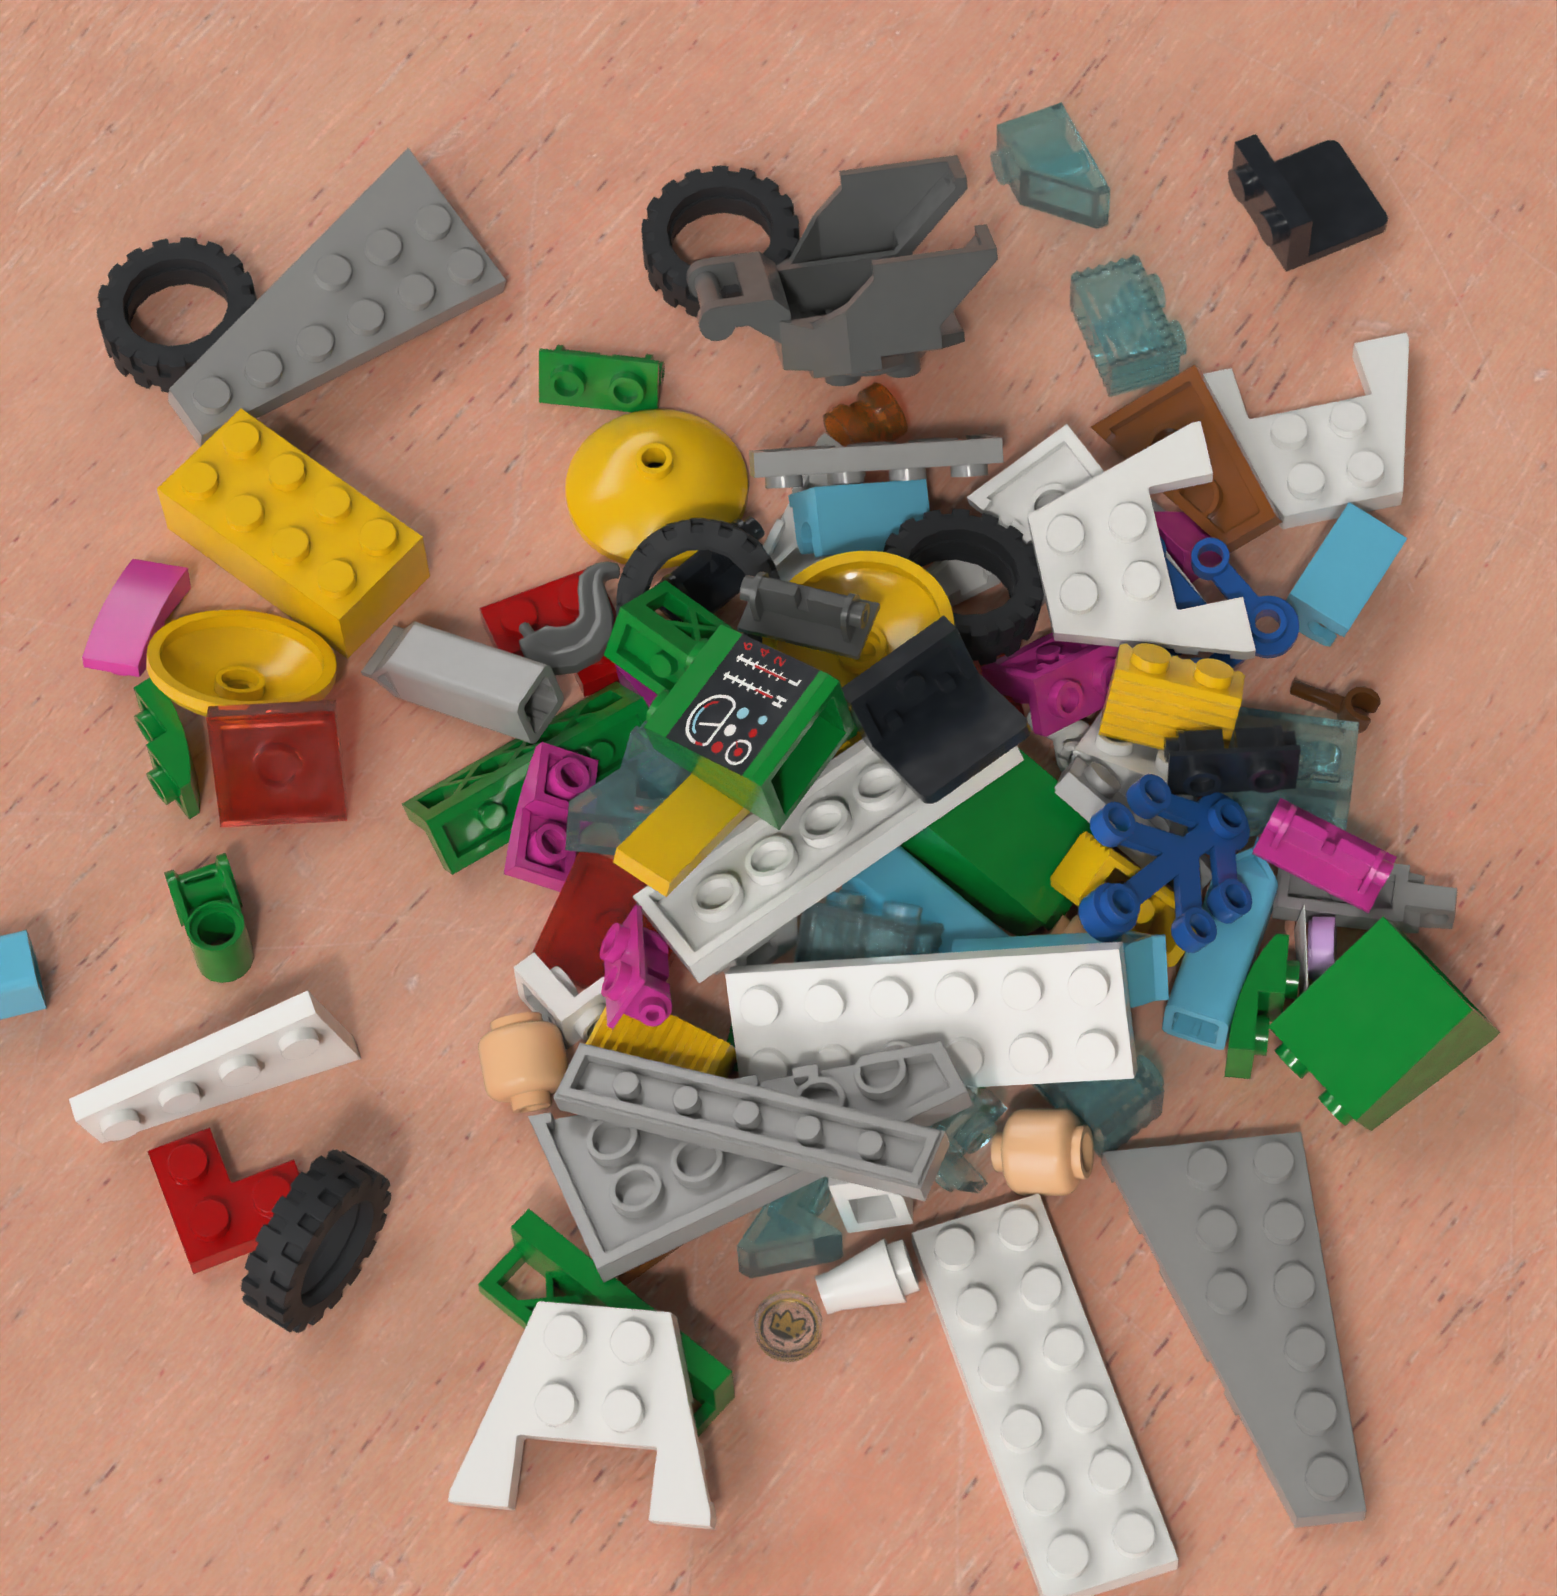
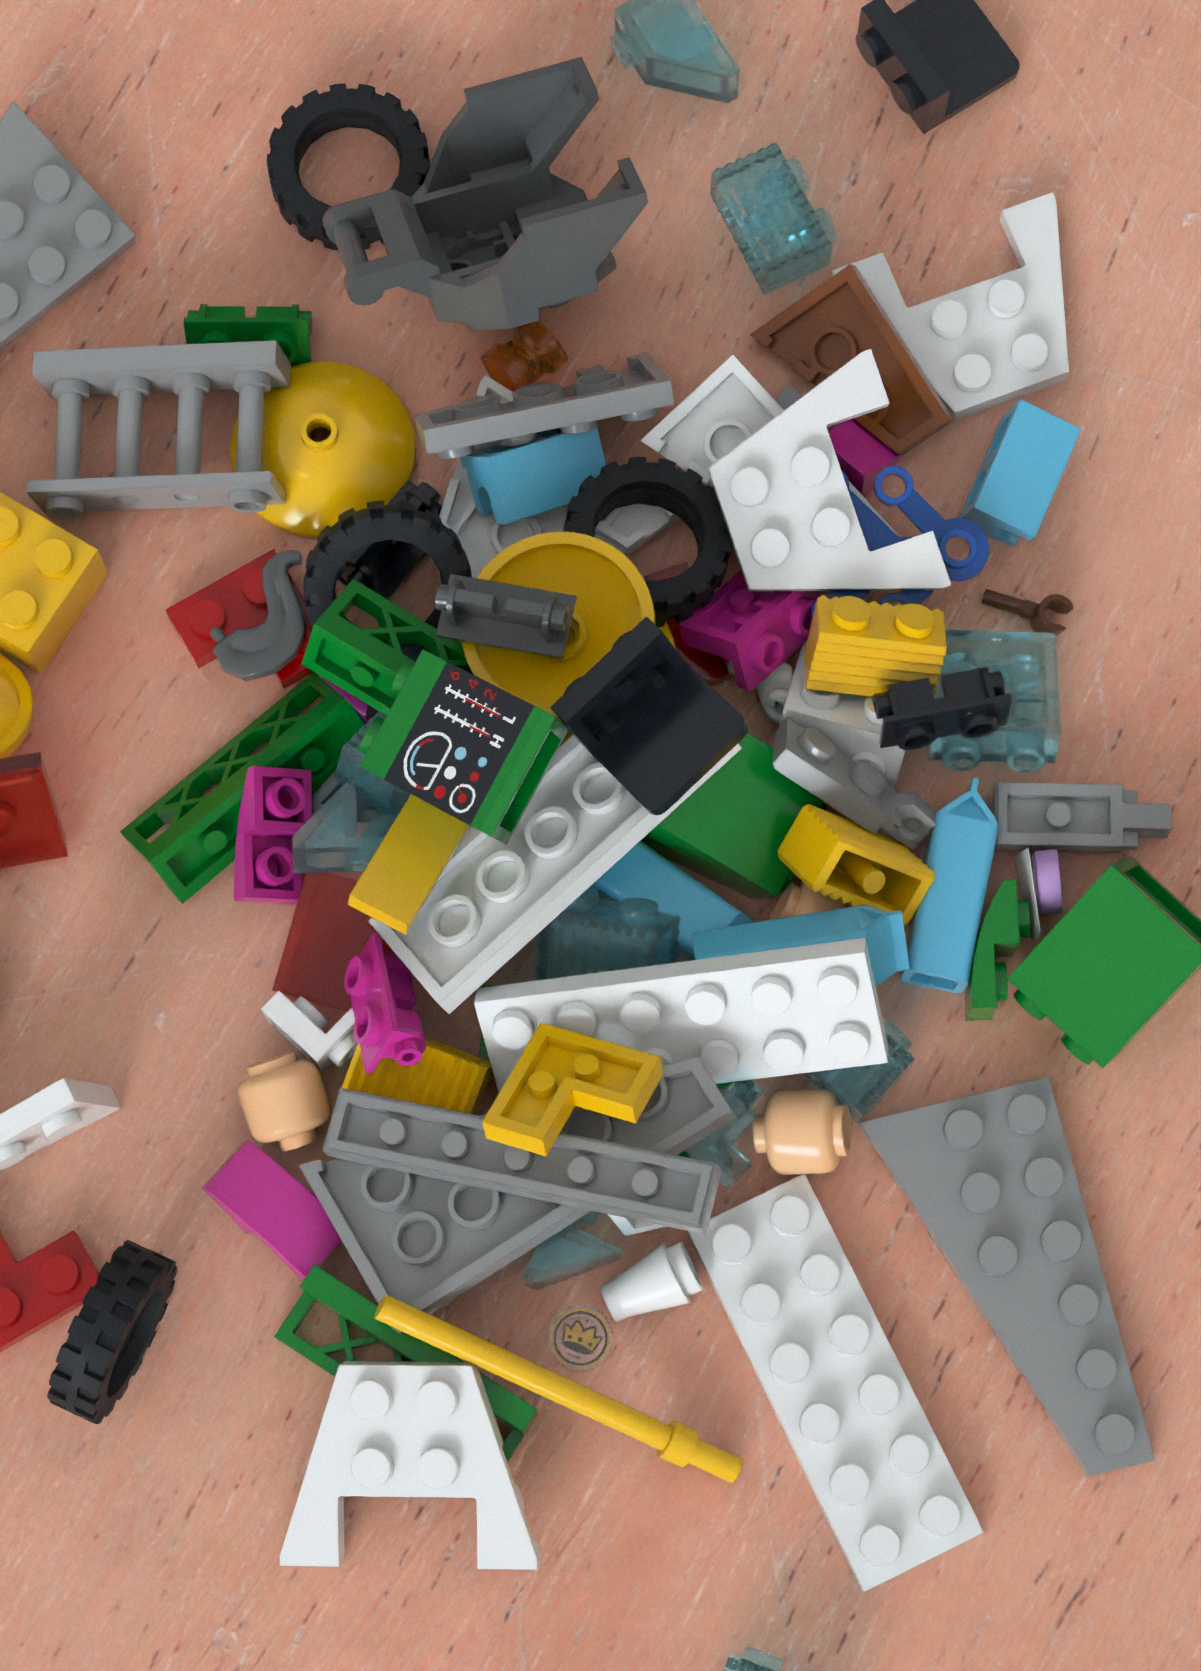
camera: 10 degrees left, 15 degrees up
(467, 680) = (164, 696): light grey piece -> none
(498, 1158) = (274, 1208): none -> dark pink slope
(501, 392) = (131, 377): none -> light grey fence
(806, 1038) = (565, 1072): none -> yellow plate
(870, 1431) = (673, 1440): none -> yellow bar
(1214, 827) = (933, 781): blue plant -> none
(1324, 855) = (1042, 790): dark pink hinge -> none

